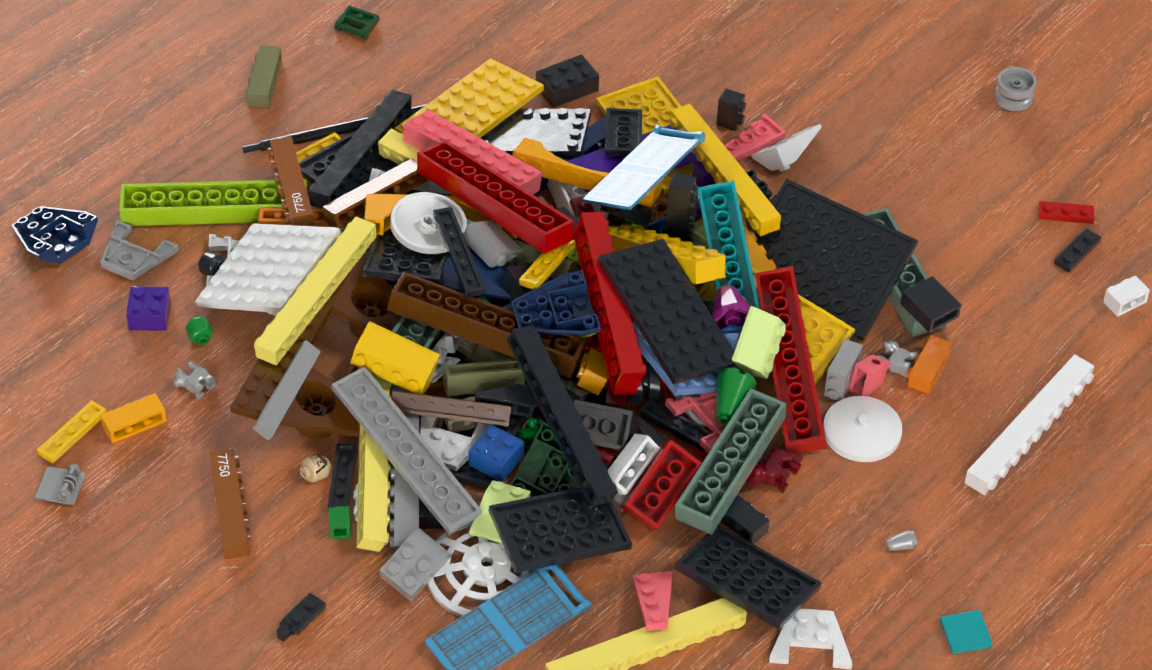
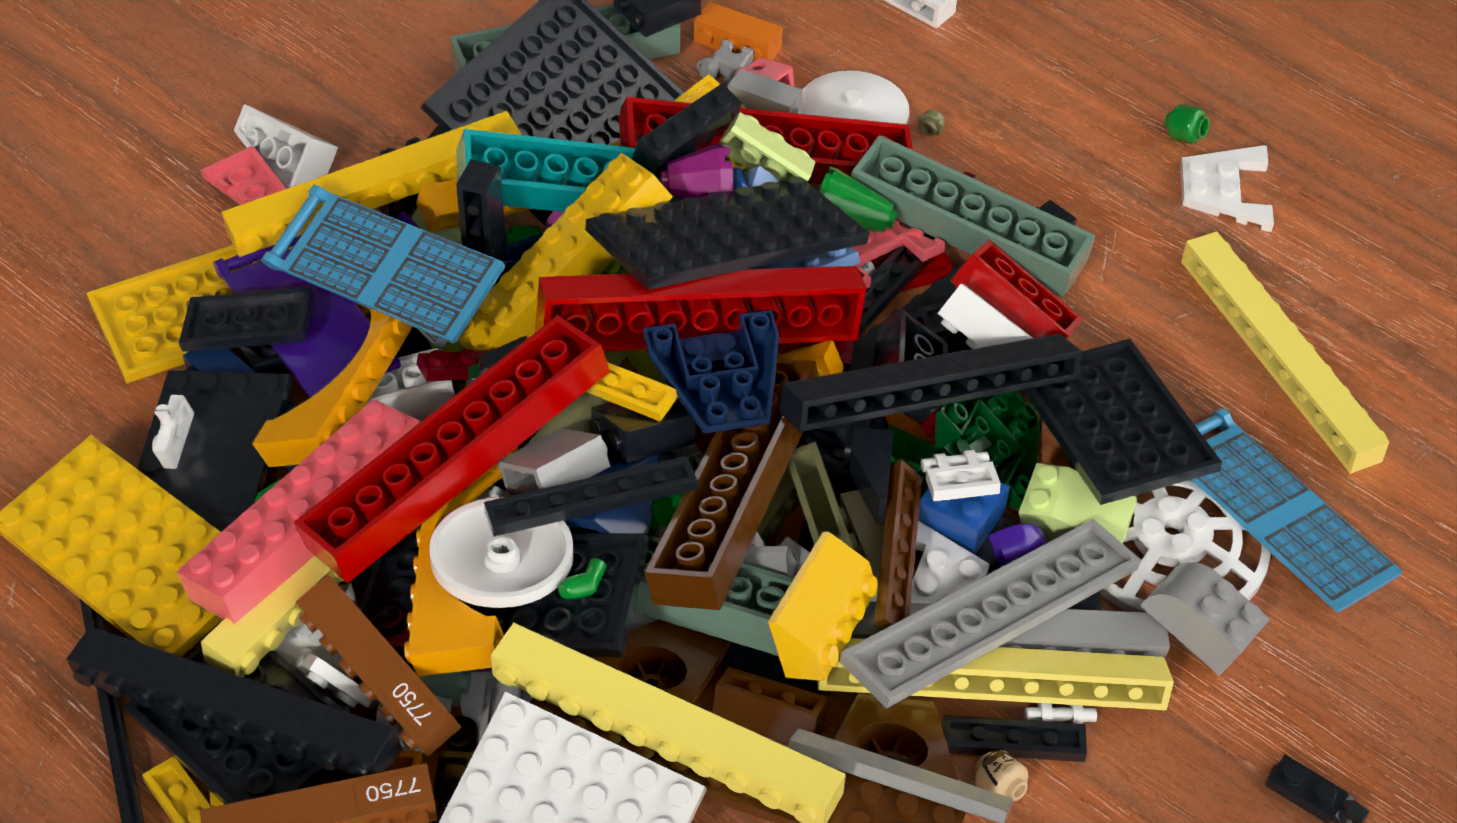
camera: 90 degrees left, 0 degrees up
(339, 522) = (1115, 737): green brick -> none
(405, 255) = (583, 584): none -> green arm
(465, 476) = (1015, 542): none -> dark purple brick
(496, 438) = (960, 475): none -> white plate
(541, 111) = (174, 427): none -> white plate
(568, 80) = (70, 408): black brick -> none
(654, 598) = (1202, 332): coral wing -> none
(731, 109) = (197, 199): black brick -> none
(748, 576) = (1155, 228): black plate -> none
(765, 296) = (687, 129): none -> black brick
(853, 469) = (931, 122): none -> olive plate
(867, 615) = (1187, 123): none -> green head
(902, 541) = (1053, 84): light grey cone -> none
(965, 632) = (1187, 43): teal tile -> none

